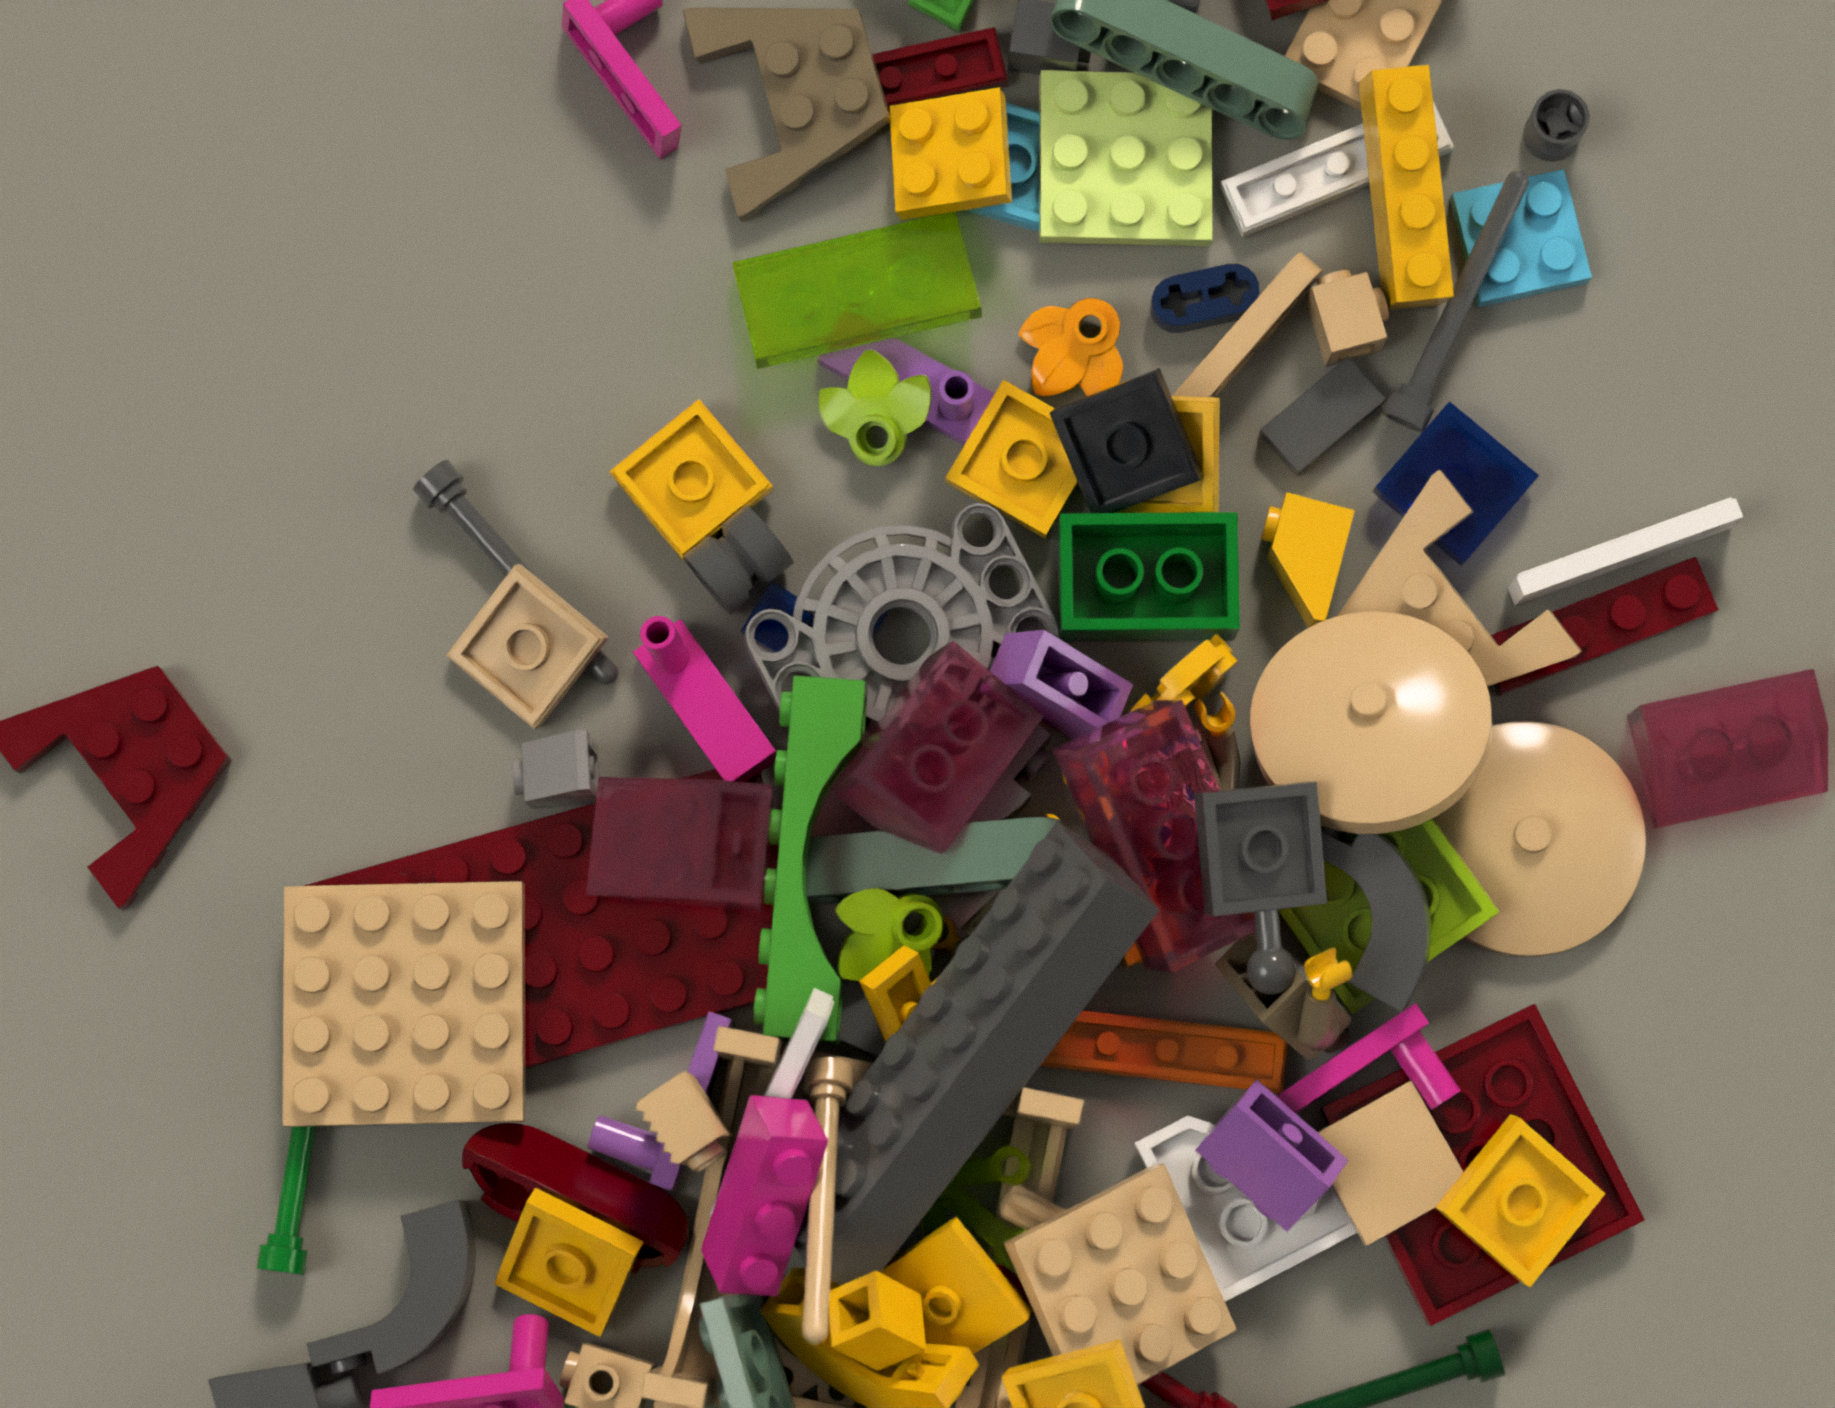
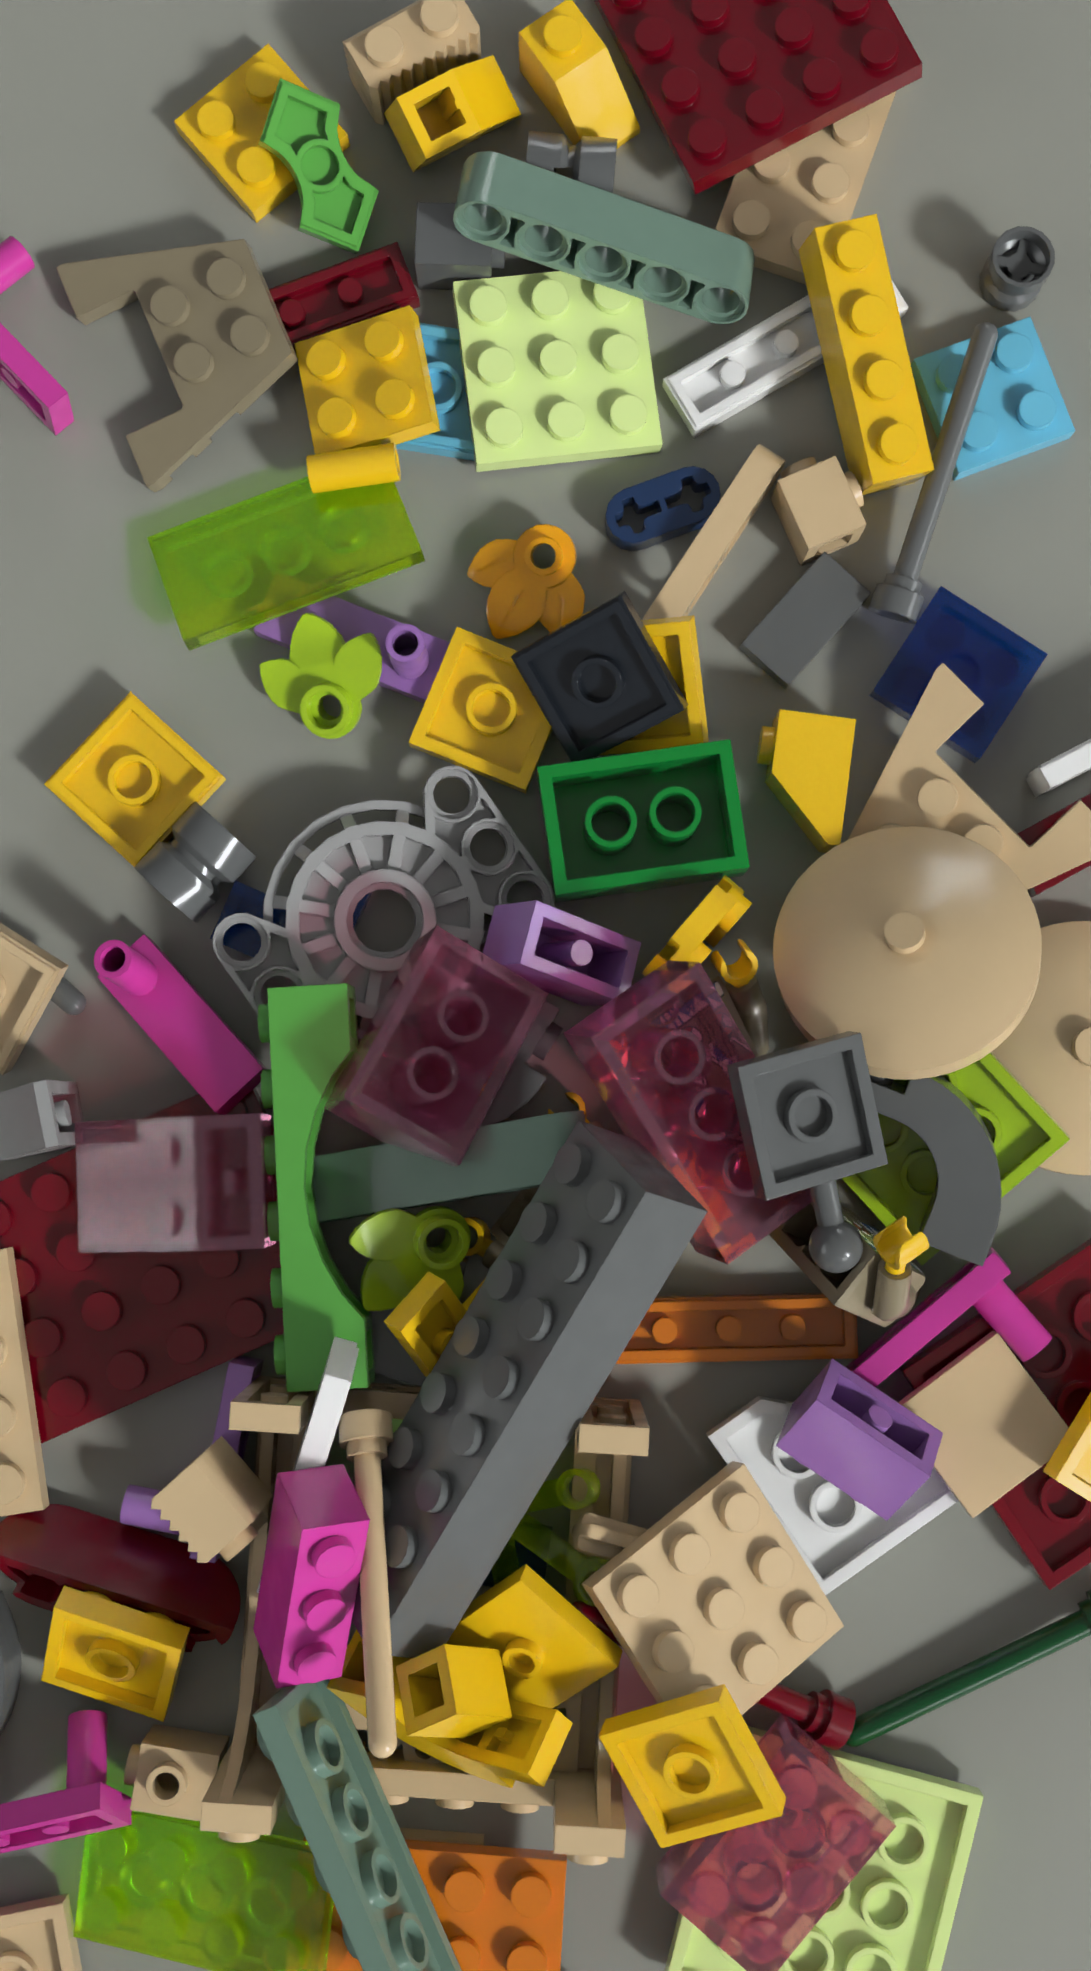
camera: 10 degrees left, 5 degrees up
(929, 225) = (353, 468): none -> yellow axle

